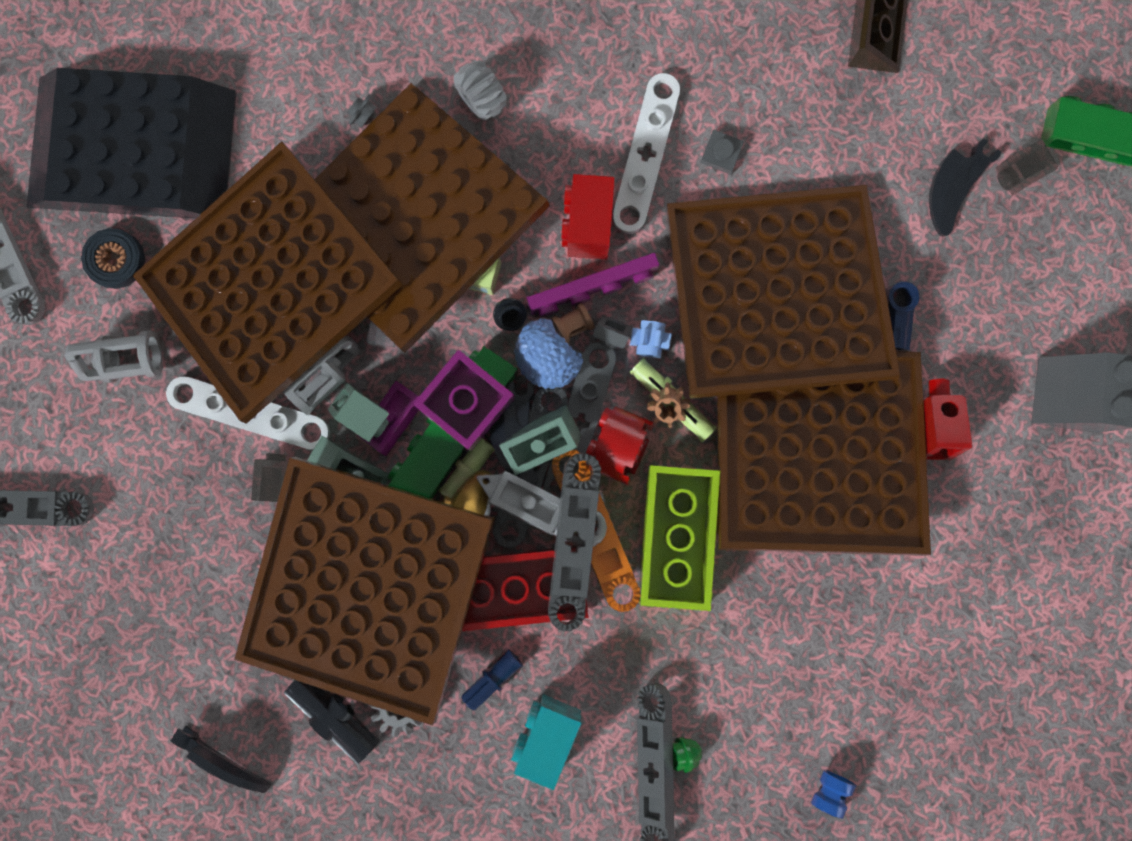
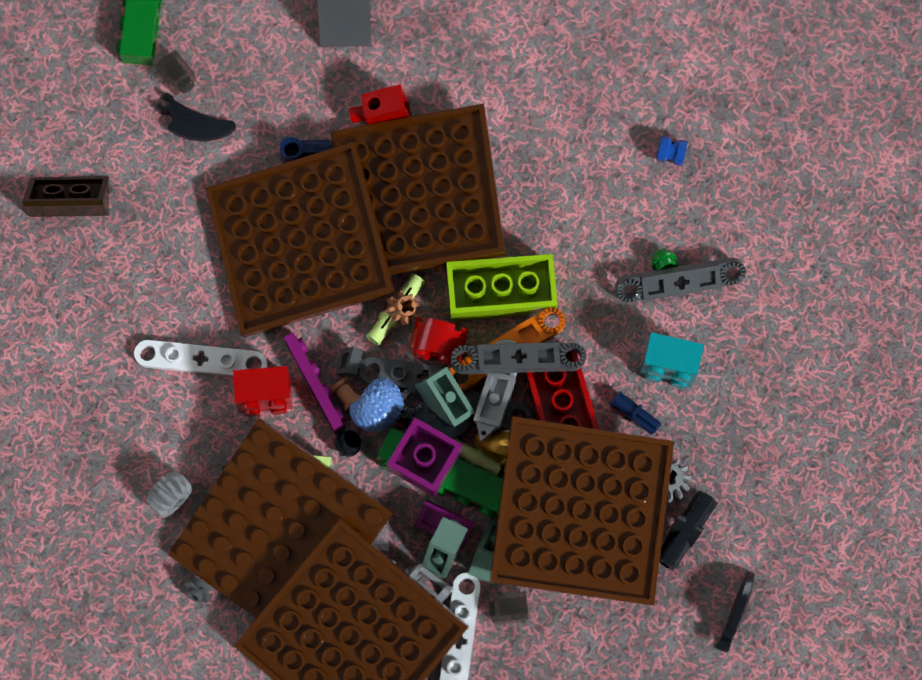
camera: 105 degrees left, 10 degrees down
(650, 339) = (351, 331): light blue gear -> none
(722, 152) = (191, 301): dark grey plate -> none

